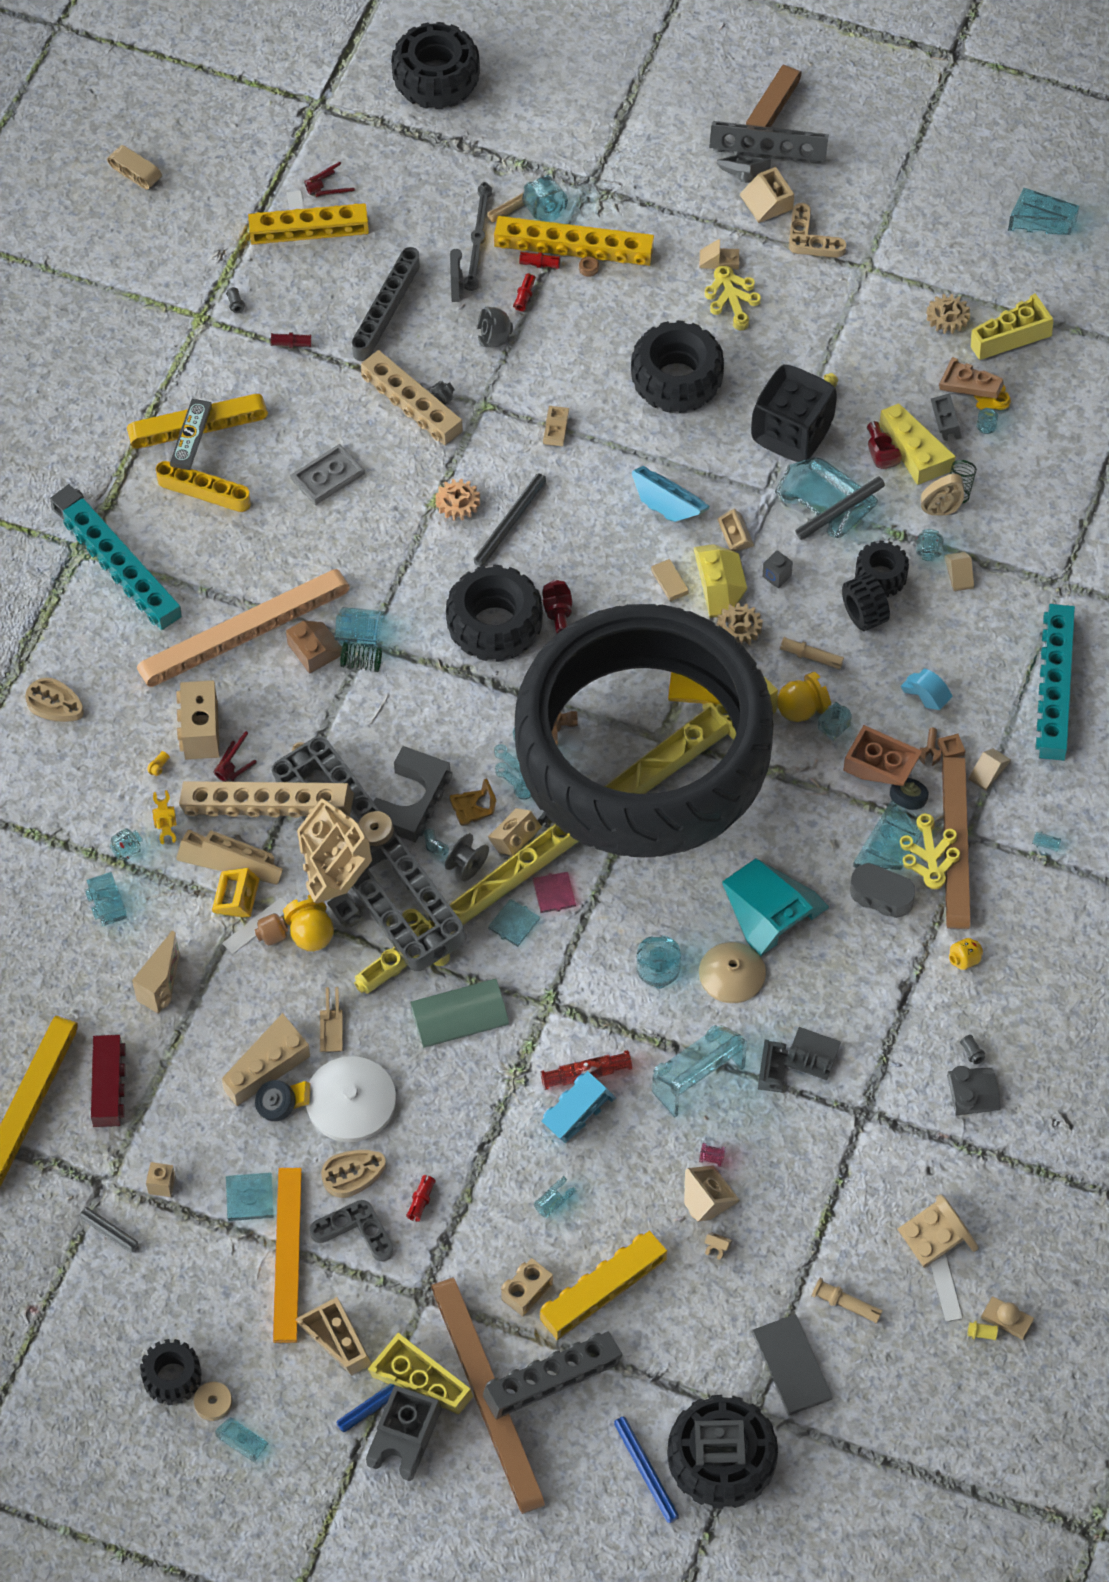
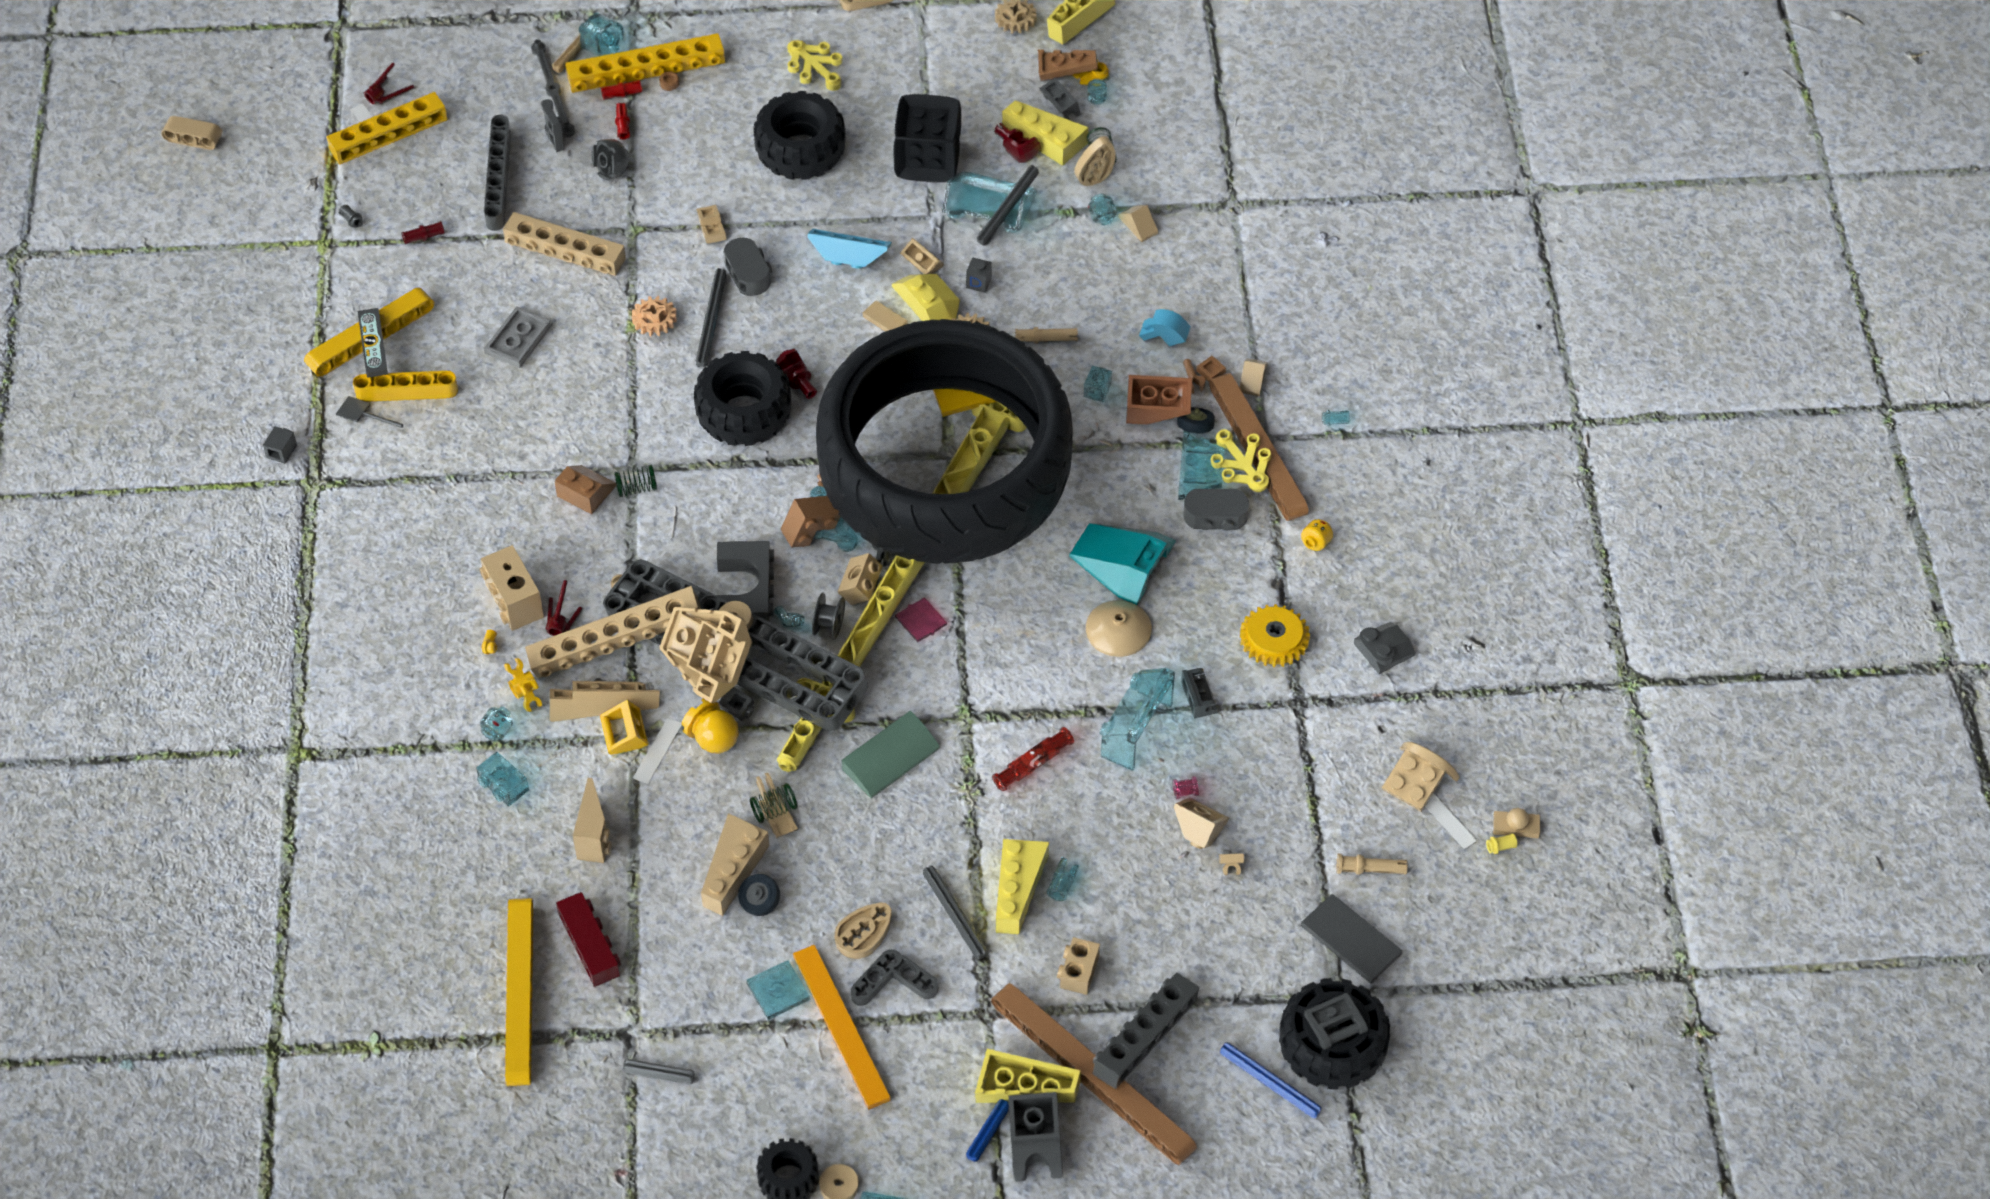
camera: 25 degrees left, 5 degrees down
(56, 711) = (355, 634): tan piece -> none
(131, 567) = (362, 480): teal brick -> none
(150, 491) = (355, 408): none -> dark grey piece
(160, 1179) = (687, 1006): tan brick -> none
(243, 627) = (507, 496): light nougat beam -> none
(271, 929) = (676, 746): medium nougat head -> none
(302, 1093) = (782, 878): yellow tile -> none
(336, 1335) = (928, 1077): tan wedge -> none
(347, 1018) = (794, 806): none -> dark green piece
(351, 1099) = (827, 867): white dish -> none
(359, 626) = (619, 455): clear light blue slope -> none
(421, 1198) = (940, 927): red pin -> none
(442, 1190) = (955, 912): none -> dark grey axle
(443, 392) = (592, 227): dark grey gear -> none
(466, 806) = (800, 573): pearl gold piece -> none
(491, 754) = (806, 518): none -> medium nougat brick
(511, 1182) = (1019, 874): none -> light yellow wedge
(514, 922) = (898, 659): clear light blue piece -> none
(567, 481) = (747, 266): none -> dark grey brick
(576, 1106) = (1043, 791): medium azure wedge -> none
(603, 1284) = (1147, 937): yellow brick -> none
(658, 961) = (1050, 640): clear light blue brick -> none
(714, 256) = (780, 35): tan slope -> none
(801, 699) = (1068, 368): yellow tile -> none
(812, 1053) = (1227, 669): dark grey hinge -> none
(865, 602) = (1075, 273): black tyre -> none
(888, 556) = (1072, 231): black tyre -> none
(888, 1041) = (1274, 635): none -> yellow gear
(975, 1054) = (1365, 612): dark grey pin -> none
(1048, 746) = (1273, 284): teal brick -> none

